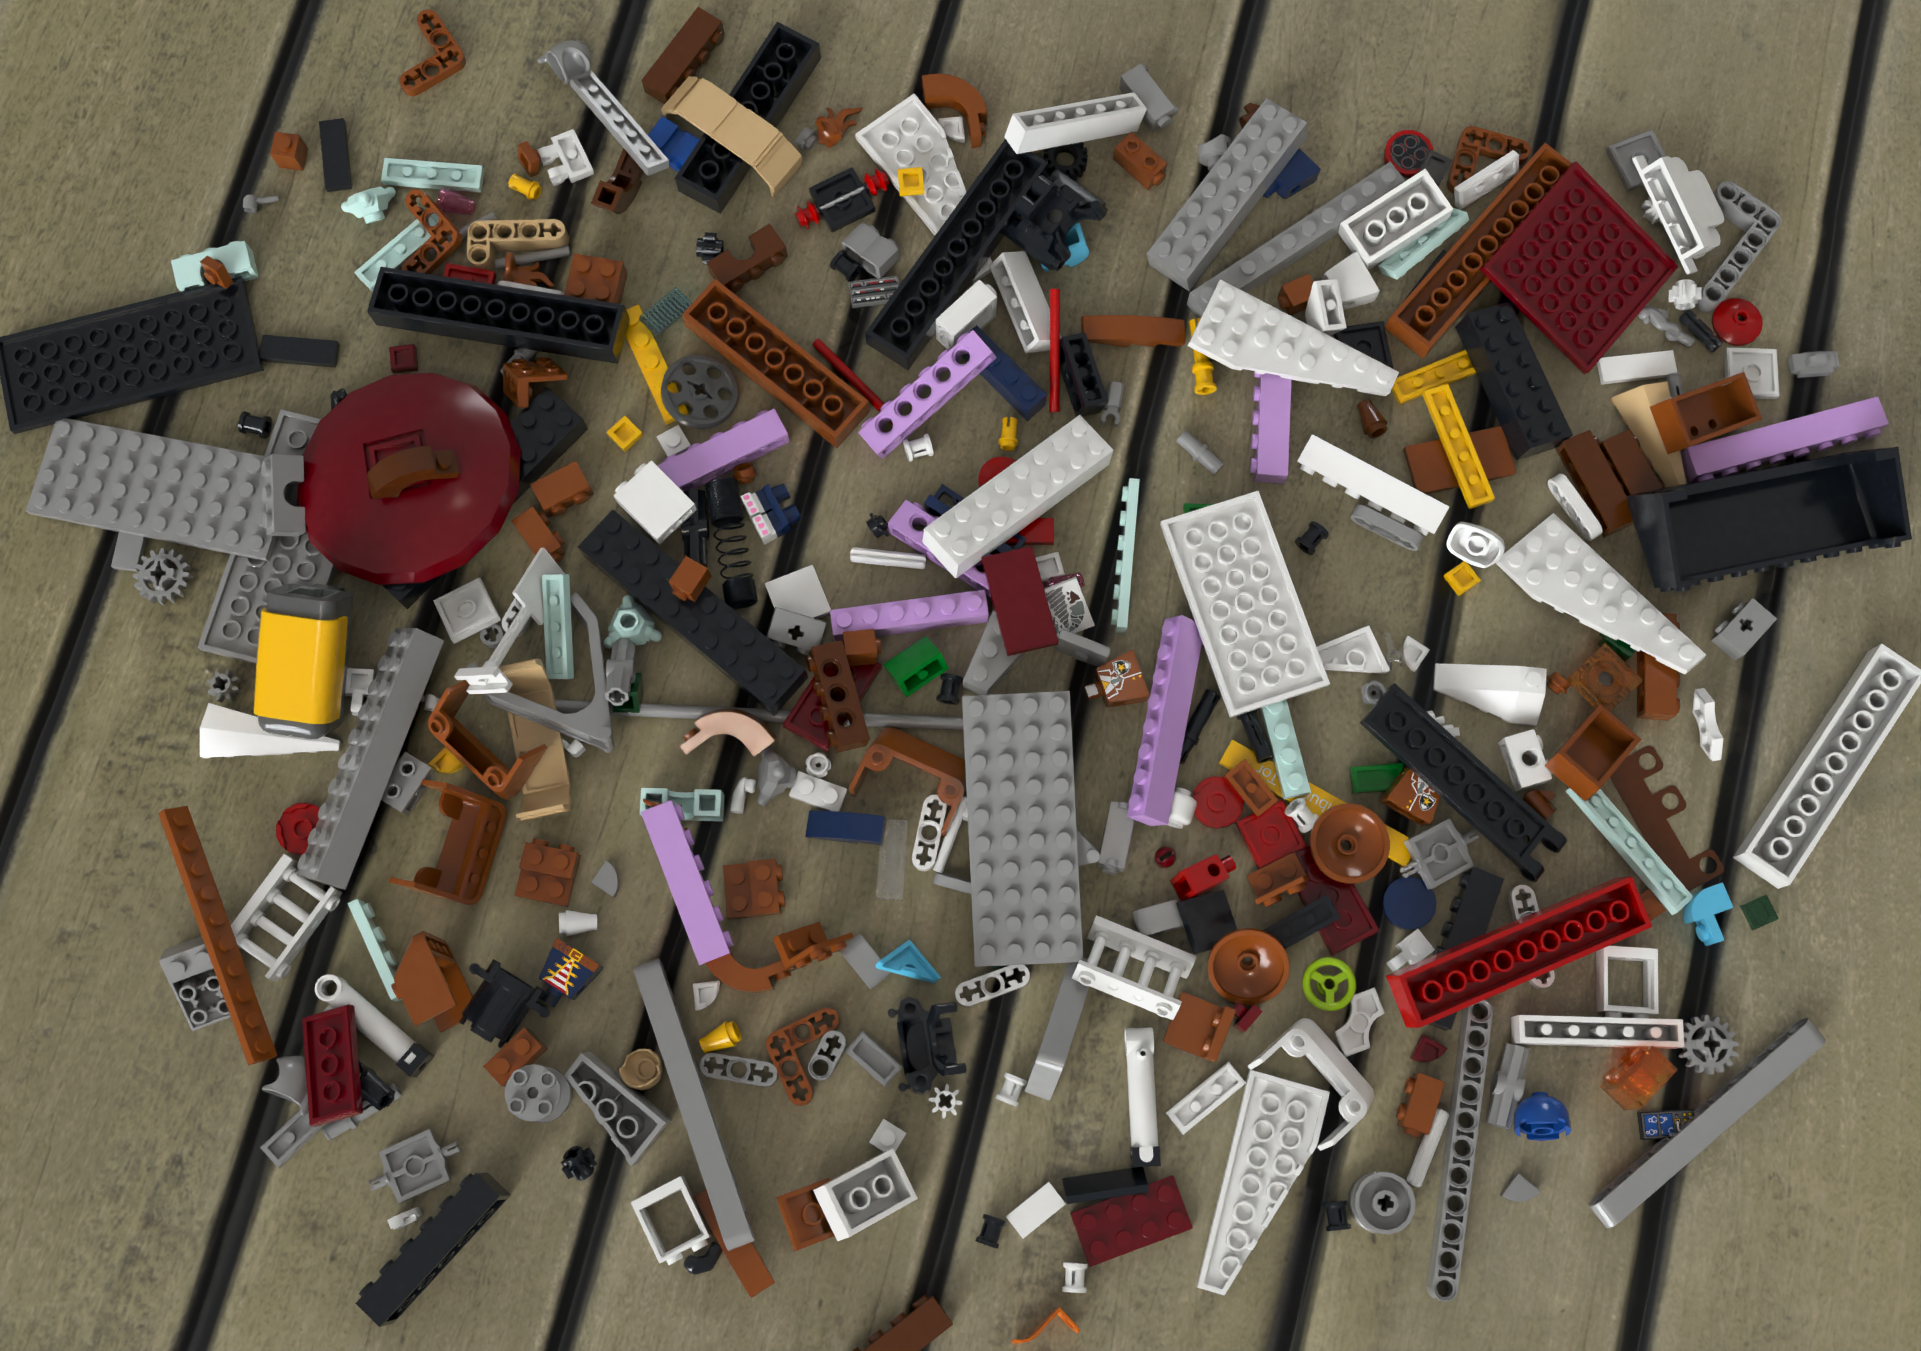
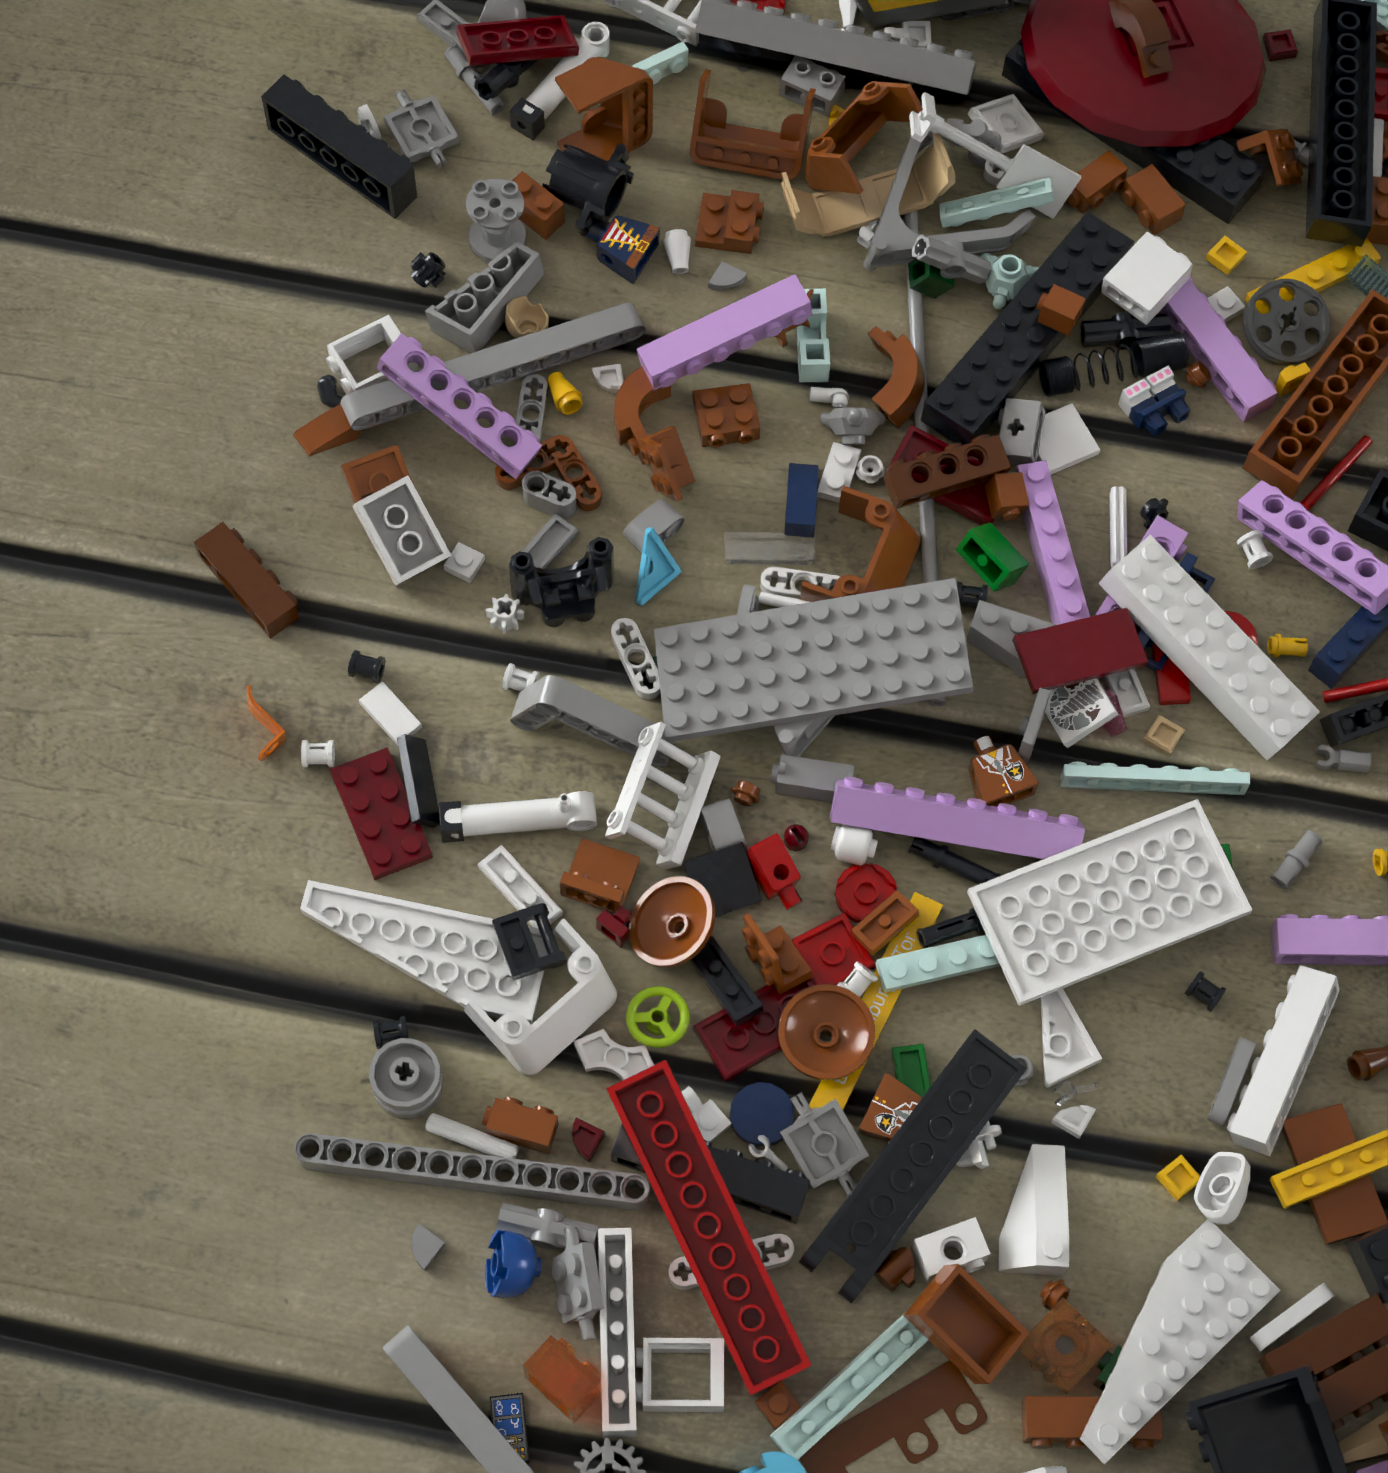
camera: 85 degrees right, 10 degrees down
(489, 641) = (977, 129): none -> light grey plate
(703, 1194) = (463, 421): none -> lavender brick
(754, 395) = (1291, 378): none -> yellow plate
(1083, 544) = (1164, 735): none -> tan tile
(1125, 896) = (746, 793): none -> dark orange plate
(1267, 1099) = (519, 945): none -> black plate
(1443, 902) = (767, 1153): none -> white hand
(1559, 1062) = (578, 1283): none -> light grey plate

